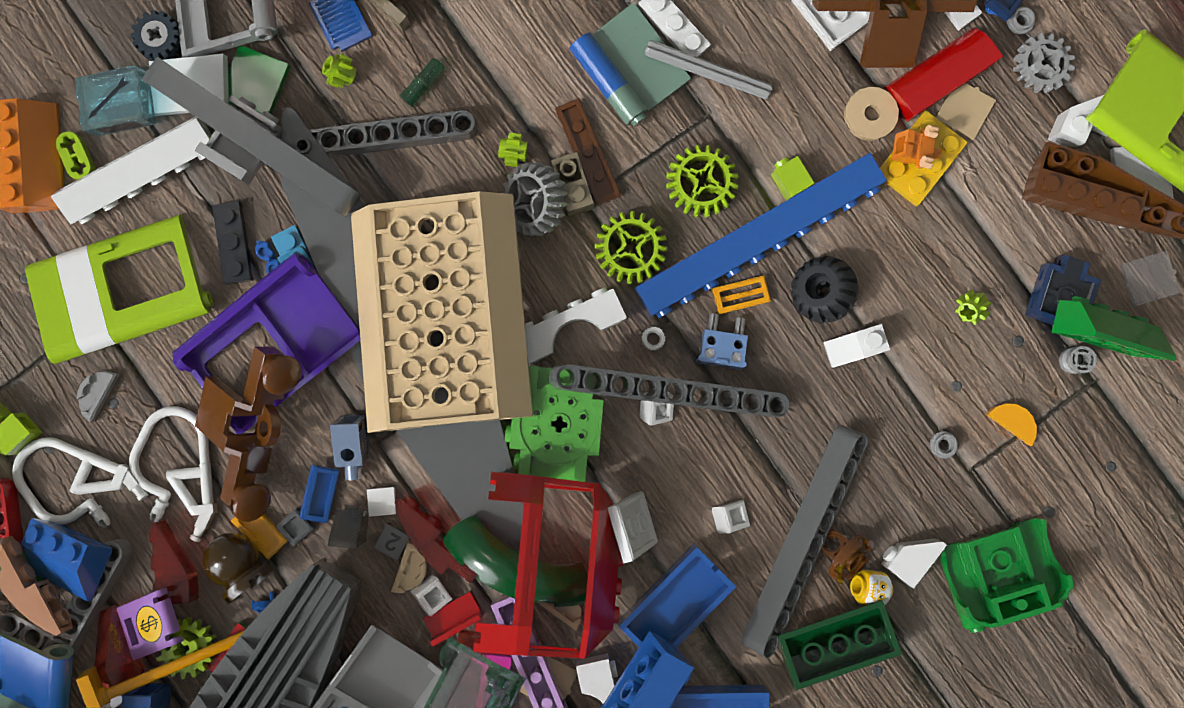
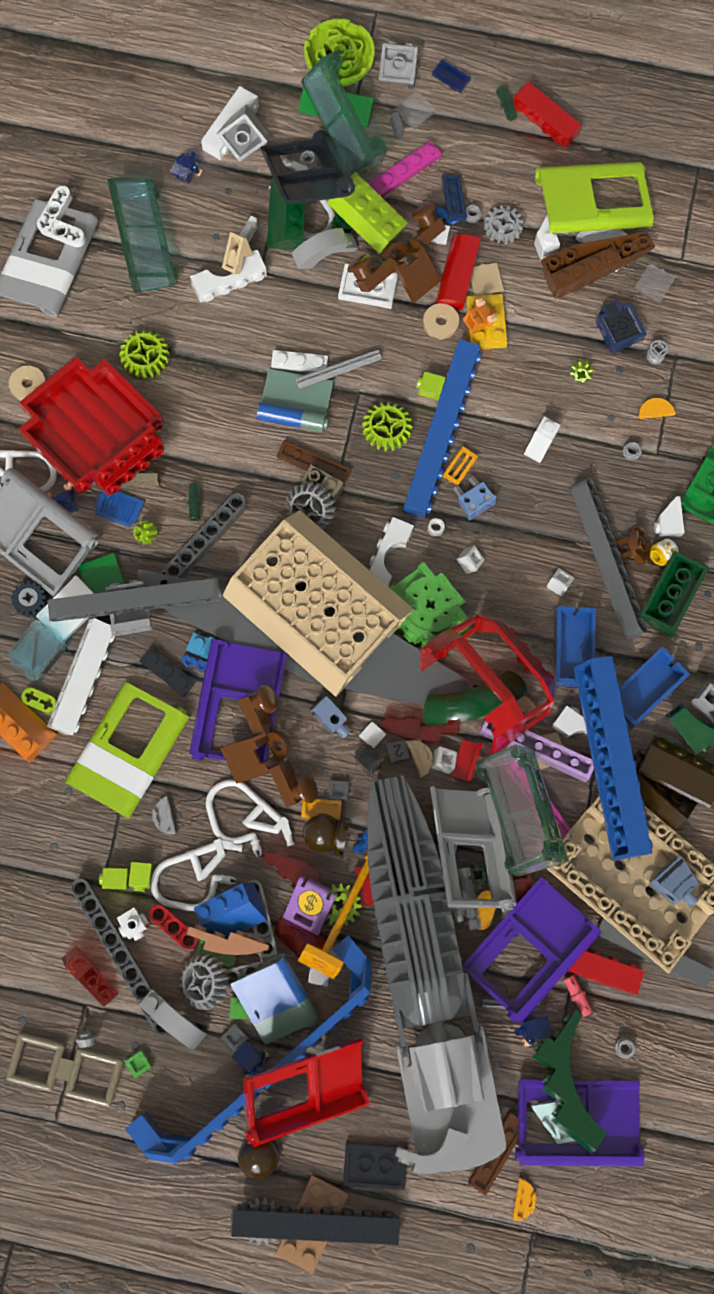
camera: 45 degrees left, 10 degrees down
(319, 493) = (335, 760): blue tile -> none
(513, 149) = (275, 493): lime gear -> none
(632, 526) = (515, 623): white tile -> none
(650, 234) = (374, 488): lime gear -> none
(658, 391) = (465, 544): dark grey beam -> none
(811, 279) = (492, 418): black wheel -> none
(1111, 329) = (658, 322): green slope -> none

